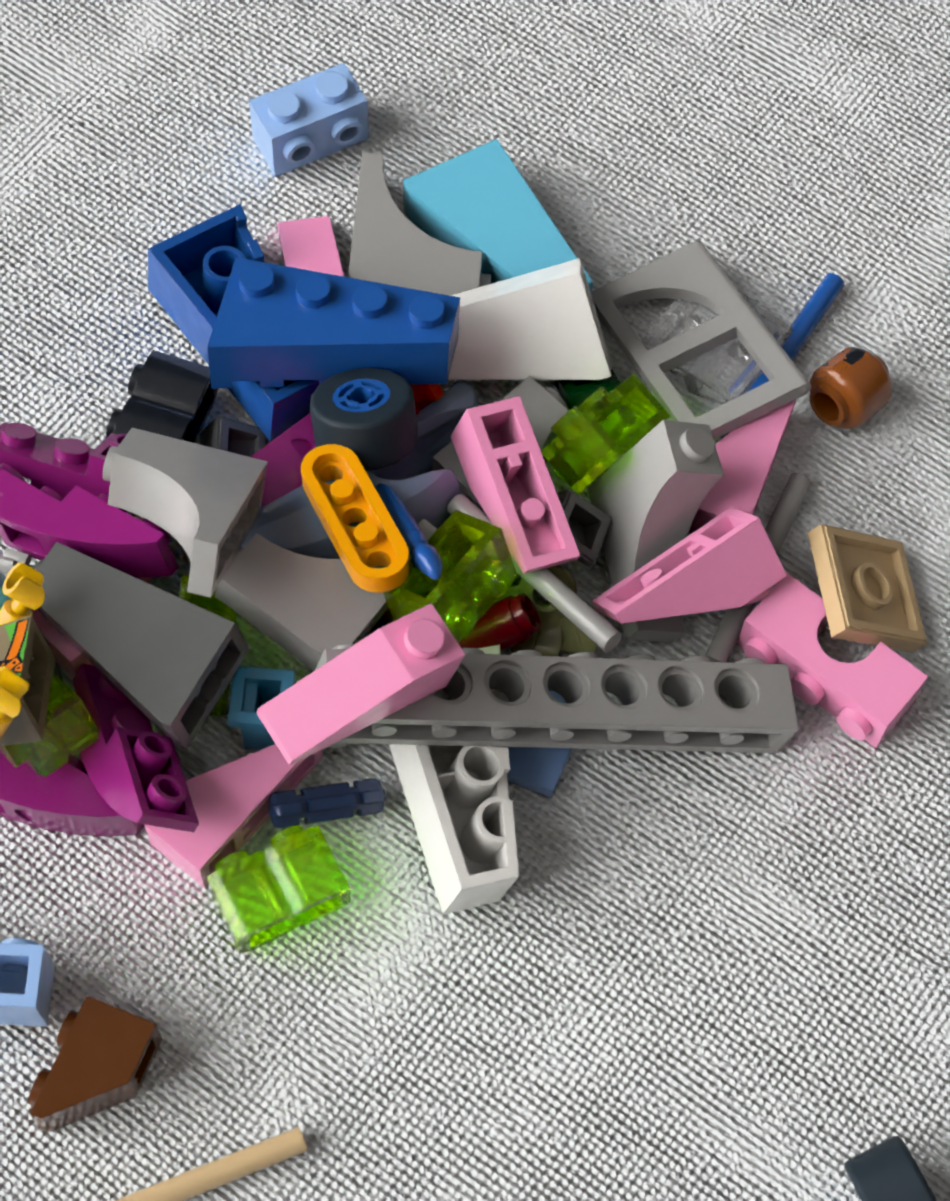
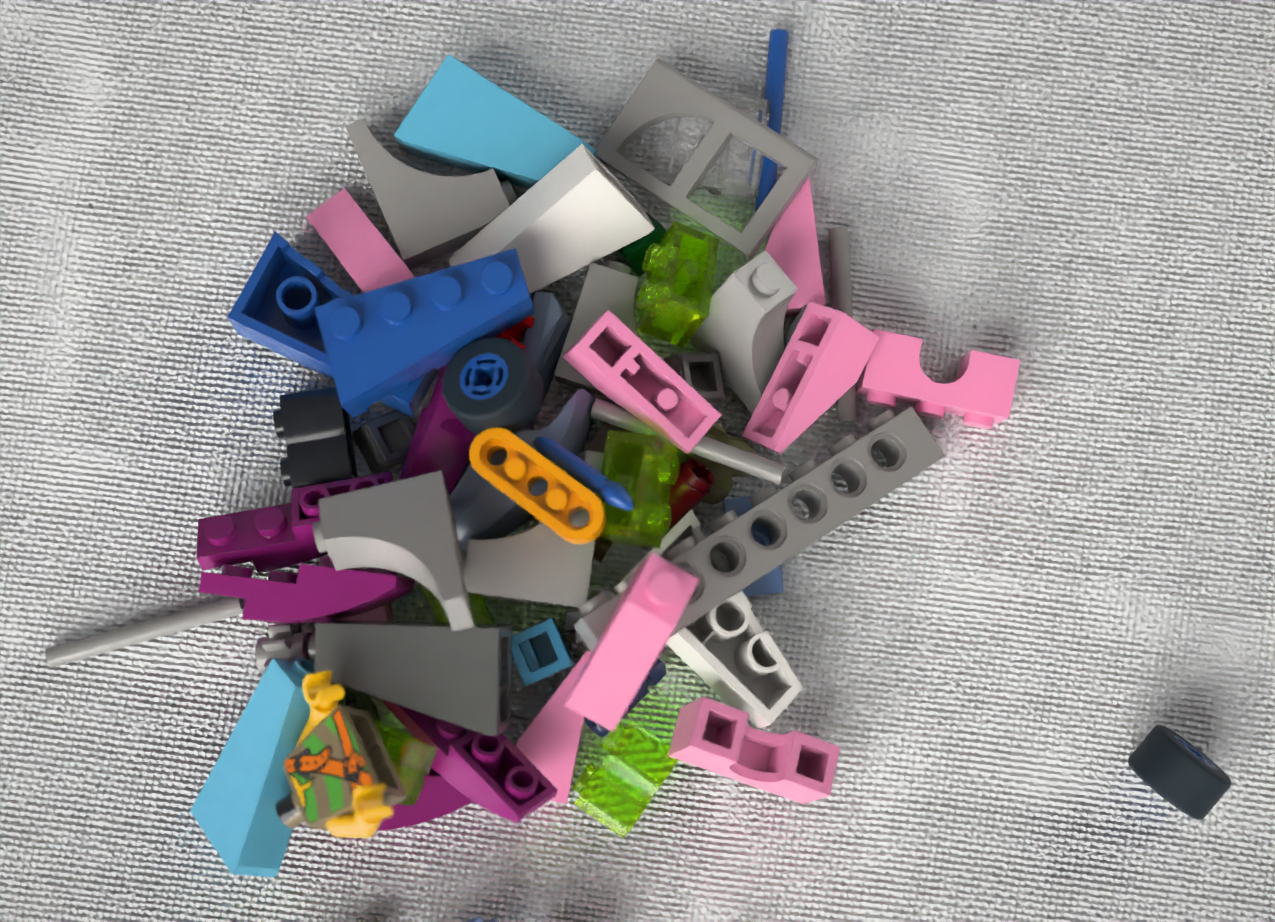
camera: 30 degrees left, 20 degrees up
(309, 119) = (281, 110): light blue brick -> none
(450, 956) = (783, 764): none -> bright pink arch
(850, 388) = (842, 132): dark orange head -> none
(866, 588) = (937, 305): tan tile -> none

